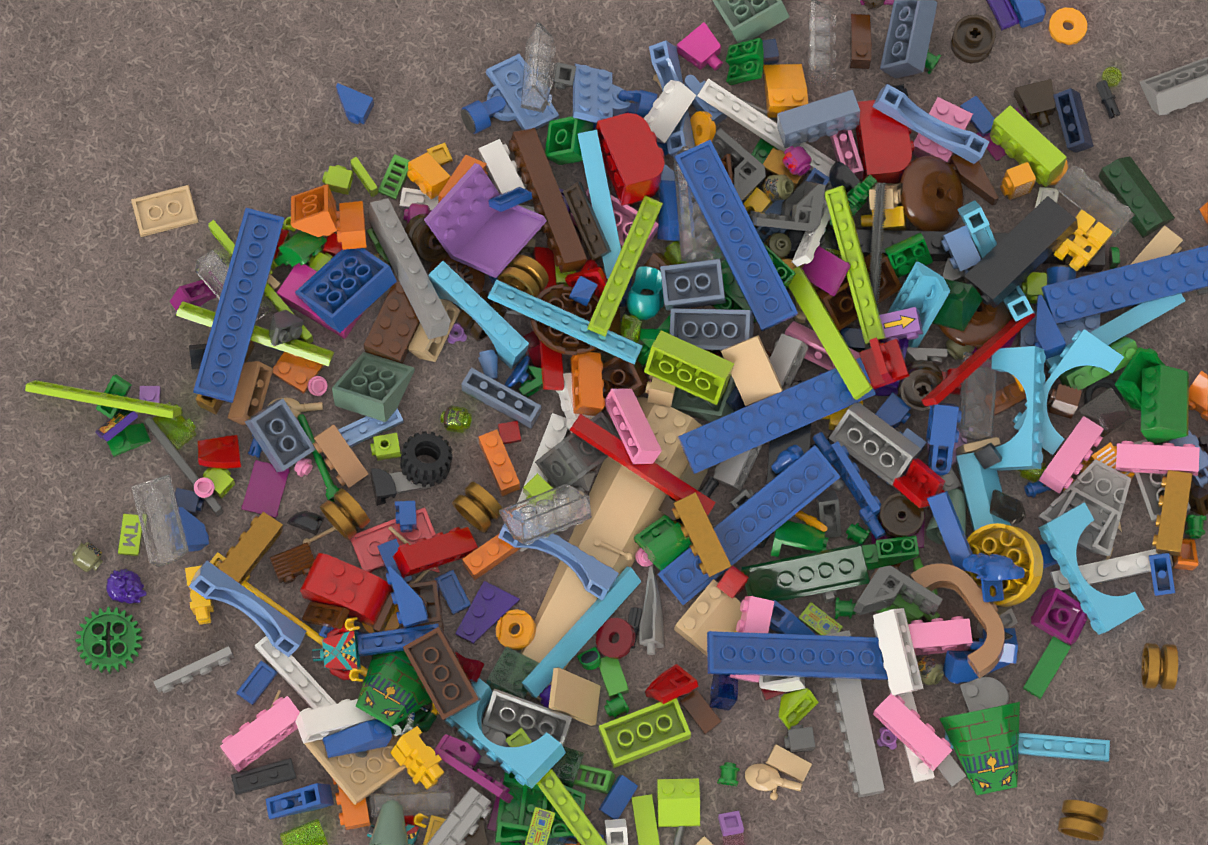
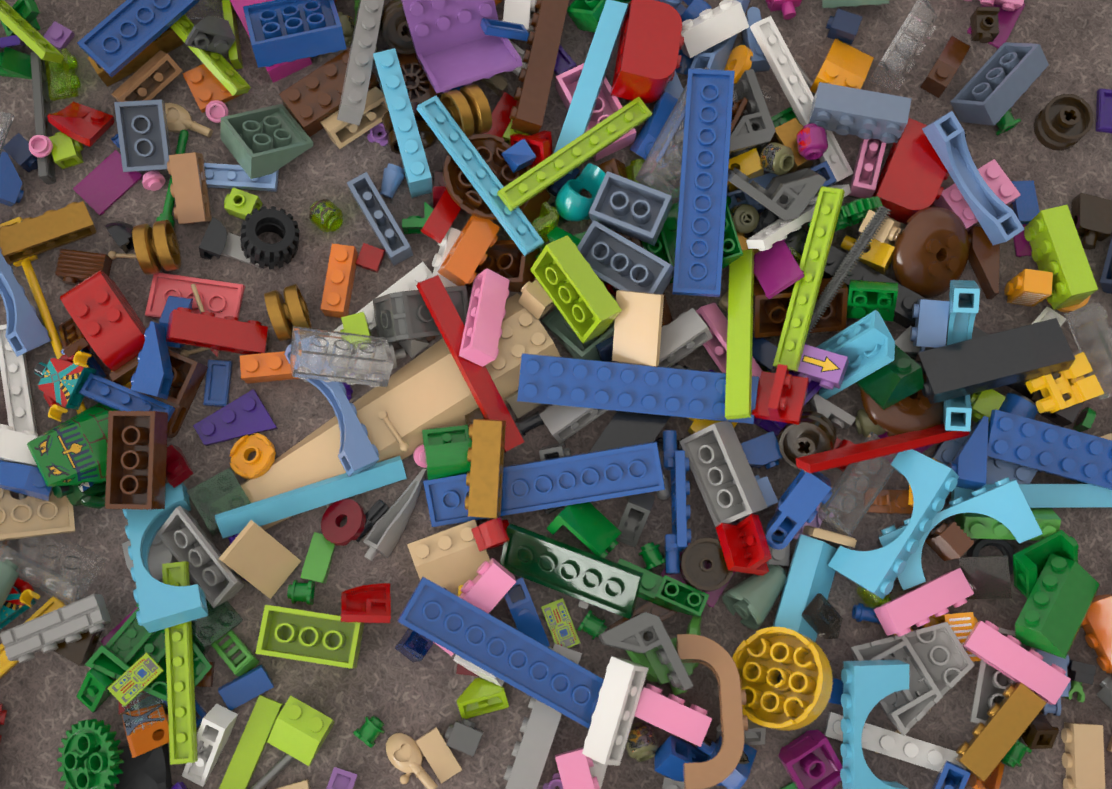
camera: 30 degrees right, 5 degrees up
(406, 516) = (216, 282): blue brick -> none
(418, 758) = (63, 538): yellow hips -> none
(464, 759) = (106, 567): magenta plate -> none
(519, 373) = (411, 206): blue dish -> none
(586, 221) = (565, 90): dark brown tile -> none
(590, 659) = (307, 528): tile -> none
(700, 711) = (383, 646): reddish brown tile -> none
(745, 61) = (819, 23): green slope -> none
(786, 458) = (622, 438): blue animal -> none
(811, 521) = (612, 516): light orange piece -> none
(842, 176) = (851, 182): black brick -> none
(950, 528) = (748, 615): tile -> none
(988, 455) = (834, 553): black tile -> none
(992, 571) = (767, 687): blue piece -> none

